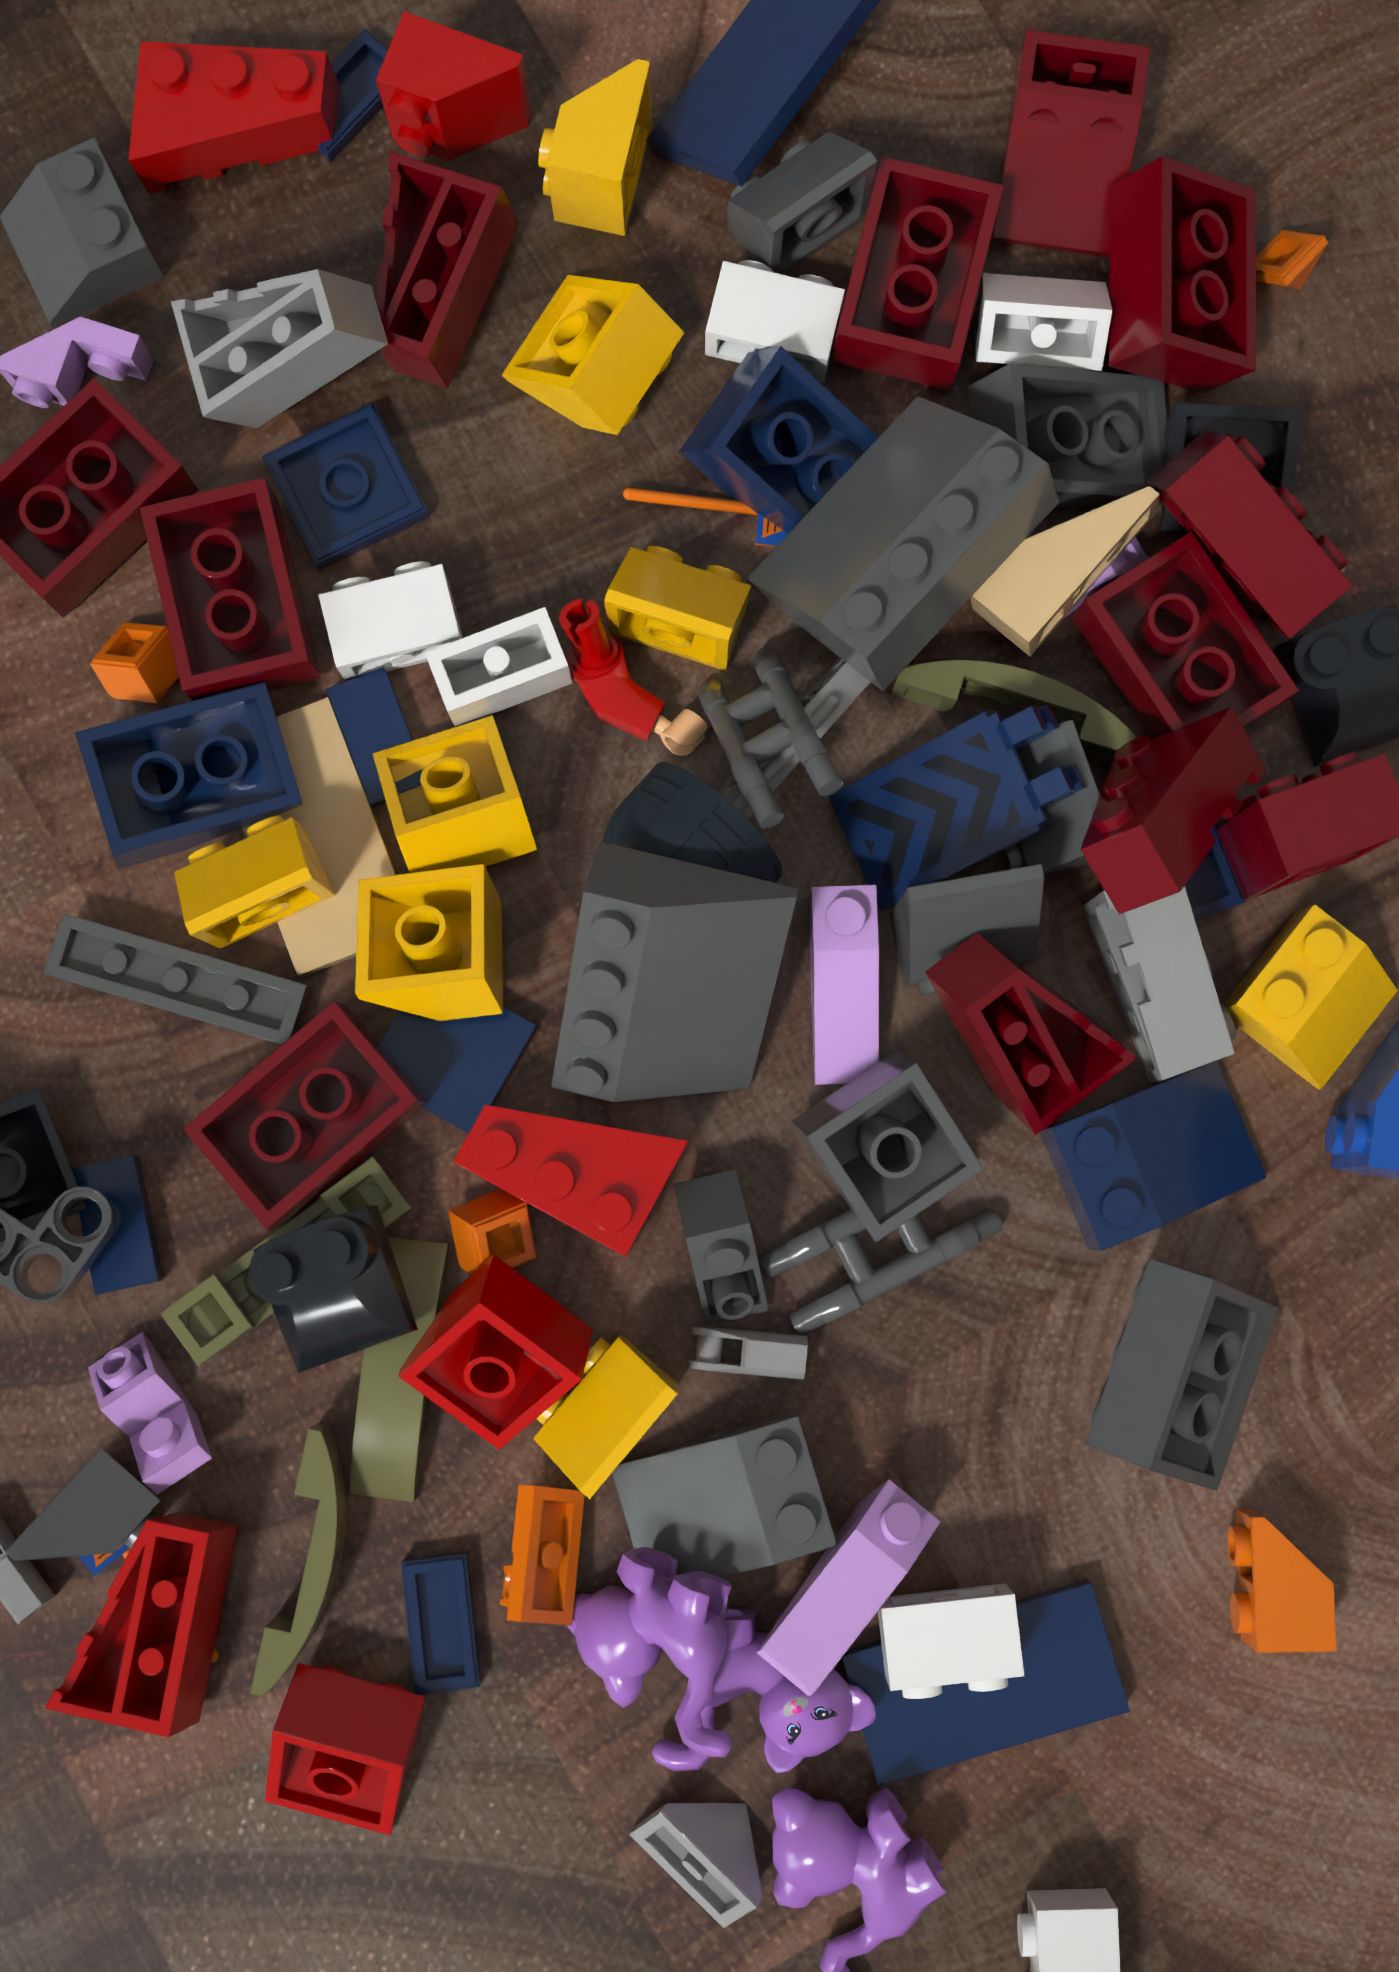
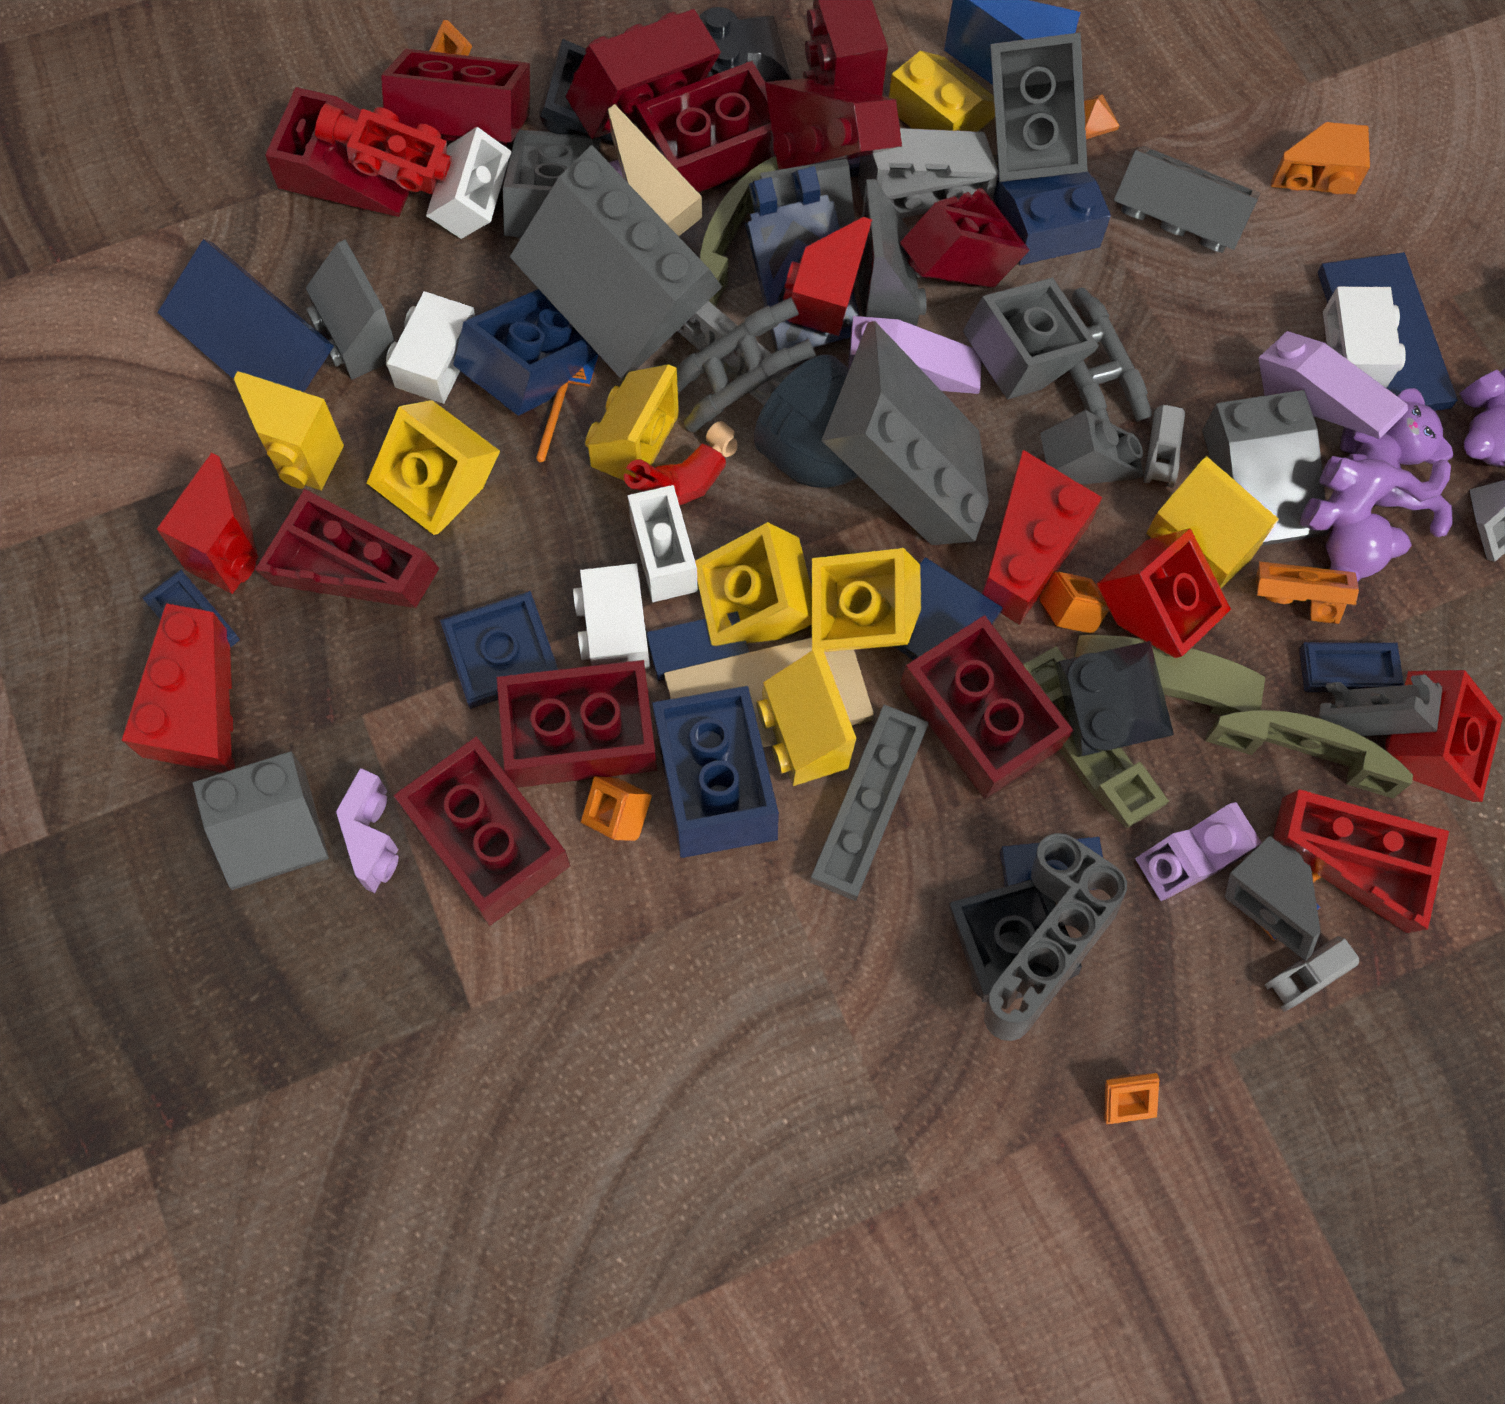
camera: 85 degrees left, 15 degrees down
(275, 342) = (389, 662): light grey wedge -> none
(359, 1658) = (1385, 709): none -> dark grey hinge
(891, 832) = (826, 277): none -> red slope
(916, 273) = (422, 246): dark red brick -> none
(1056, 211) = (401, 146): none -> red brick
(1268, 1124) = (1039, 107): none -> dark grey slope
(1320, 1224) = (1098, 117): none -> orange slope

